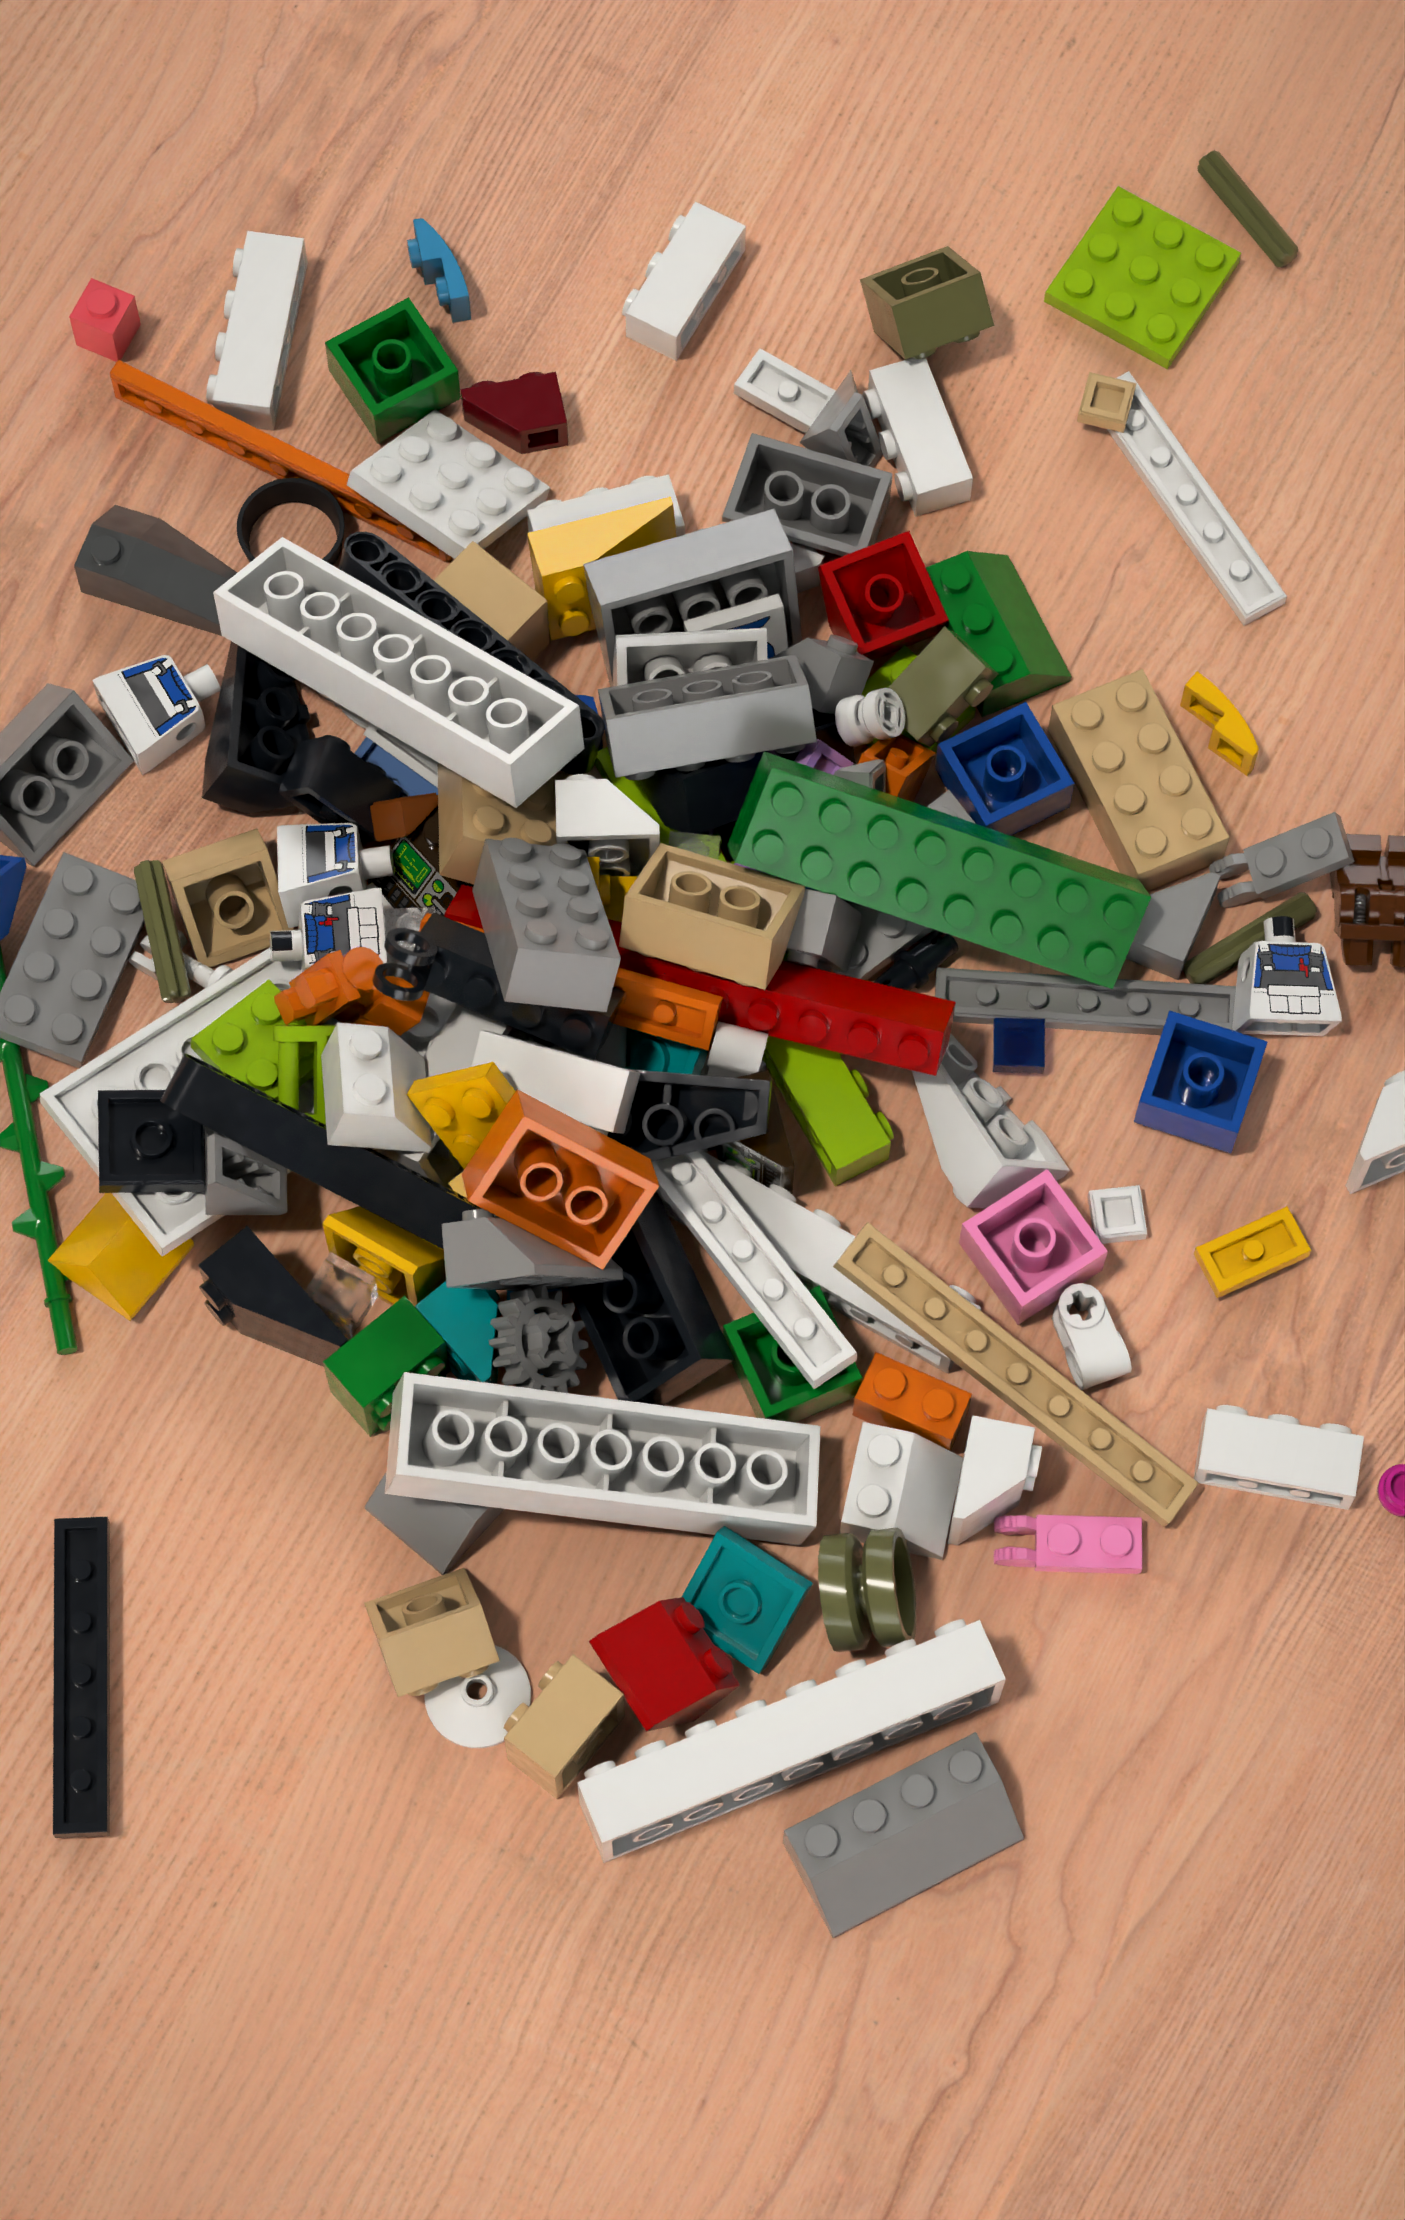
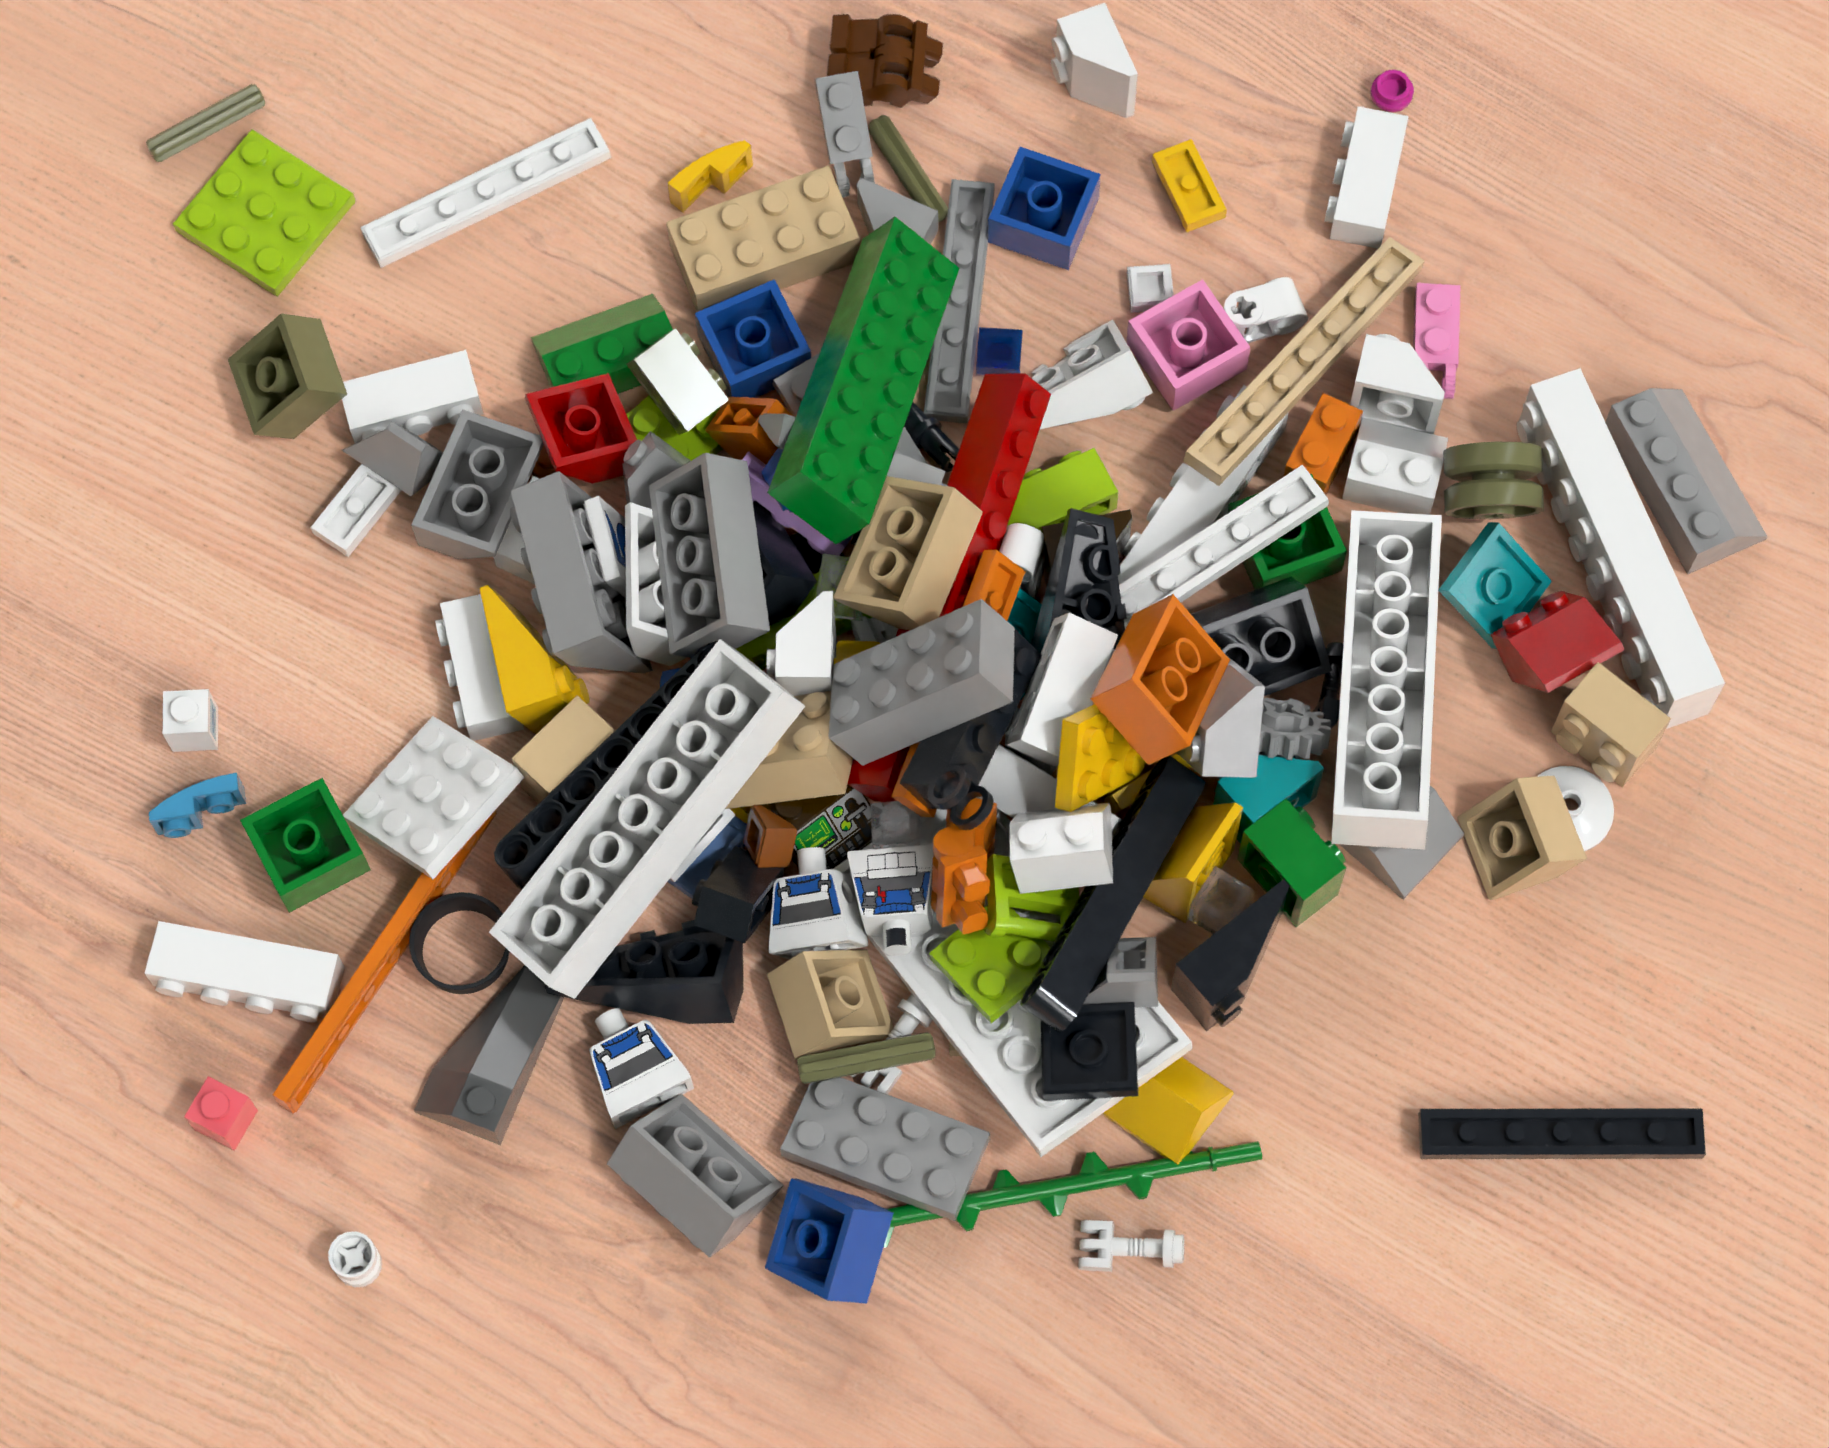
camera: 85 degrees left, 0 degrees up
(519, 412) = (357, 737): dark red slope -> none
(533, 253) = (190, 720): none -> white brick
(684, 280) = (231, 590): white brick -> none
(870, 717) = (707, 431): white wheel -> none
(1106, 402) = (393, 243): tan tile -> none
(1284, 986) = (958, 140): white torso -> none

